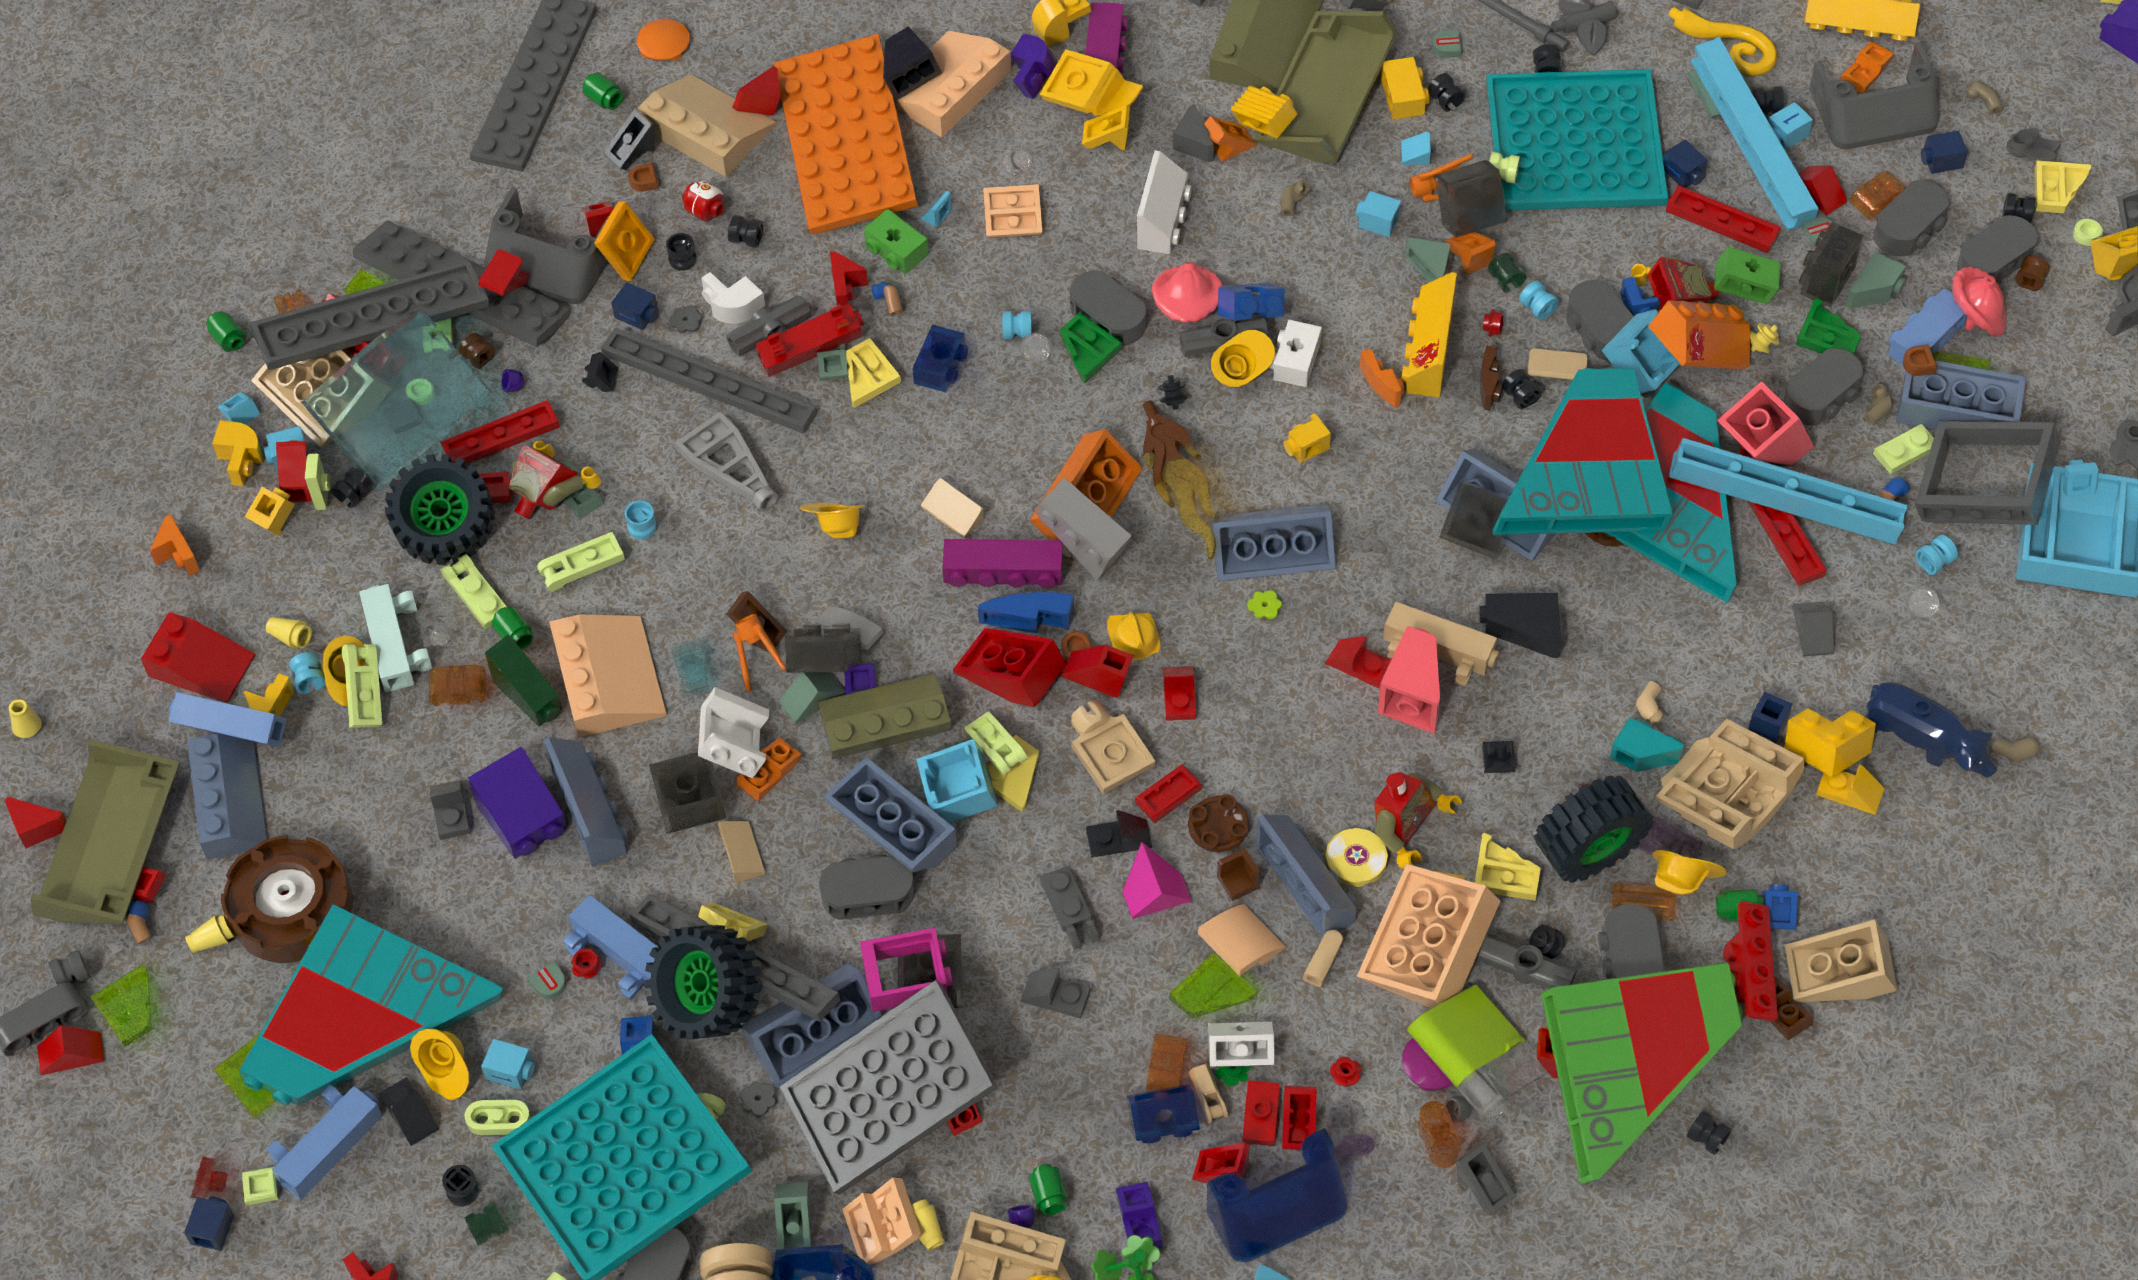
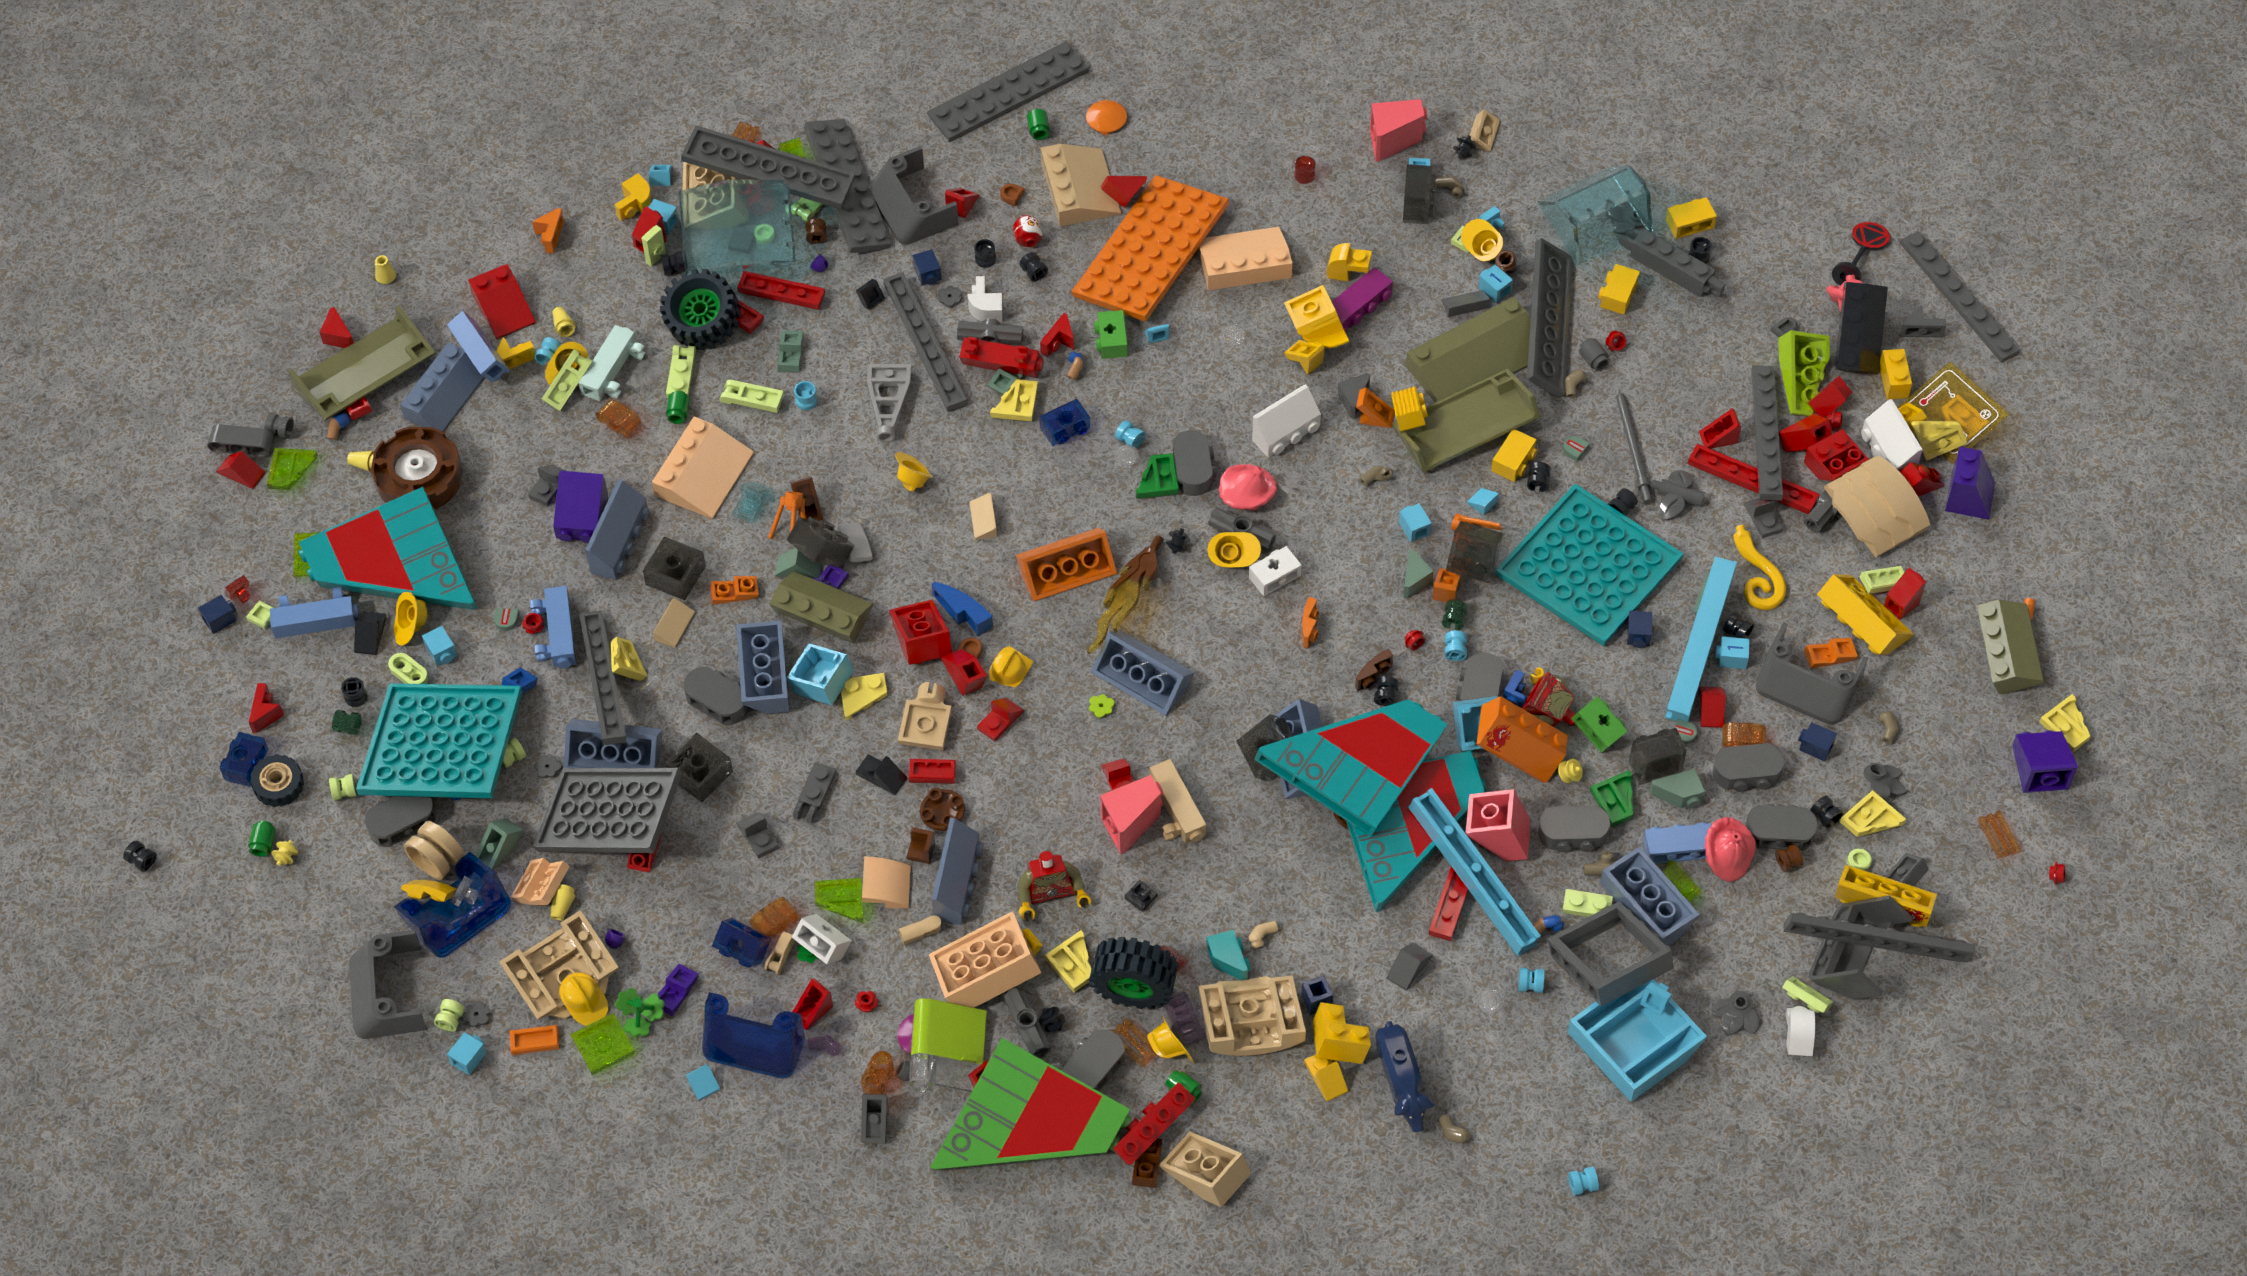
camera: 40 degrees right, 0 degrees up
(225, 331) = (694, 117): green brick -> none
(270, 509) = (616, 244): yellow brick -> none
(503, 273) = (865, 196): red slope -> none
(522, 681) = (649, 440): dark green slope -> none
(544, 479) = (774, 332): torso -> none
(624, 241) = (956, 223): light orange tile -> none
(633, 136) = (1020, 165): black slope -> none
(702, 981) = (569, 676): black wheel -> none
(732, 732) = (726, 553): white panel -> none
(898, 946) = (659, 738): dark pink window -> none
(907, 63) = (1225, 228): black slope -> none
(996, 743) = (863, 668): yellowish green plate -> none
(1002, 562) = (977, 568): magenta brick -> none
(1012, 211) = (1201, 364): light nougat slope -> none
(1035, 64) = (1306, 279): dark purple brick -> none
(1048, 1189) = (642, 935): green brick -> none
(1083, 528) = (1030, 579): light grey wedge -> none
(1153, 884) = (871, 815): dark pink slope -> none
(1222, 1161) = (746, 999): red slope -> none
(1239, 304) = (1264, 516): blue brick -> none
(1261, 1113) = (793, 988): red plate -> none
(1308, 439) = (1226, 627): yellow brick -> none
(1356, 857) = (998, 888): light yellow tile -> none
(1430, 337) = (1363, 620): yellow slope -> none
(1507, 167) = (1514, 545): yellowish green wheel -> none
(1524, 620) = (1239, 828): black slope -> none
(1555, 363) = (1424, 692): tan slope -> none
(1707, 1131) = (1027, 1195): black wheel -> none
(1723, 219) = (1627, 680): red plate -> none
(1781, 906) = (1206, 1107): blue bracket -> none
(1919, 361) = (1639, 853): dark orange tile -> none

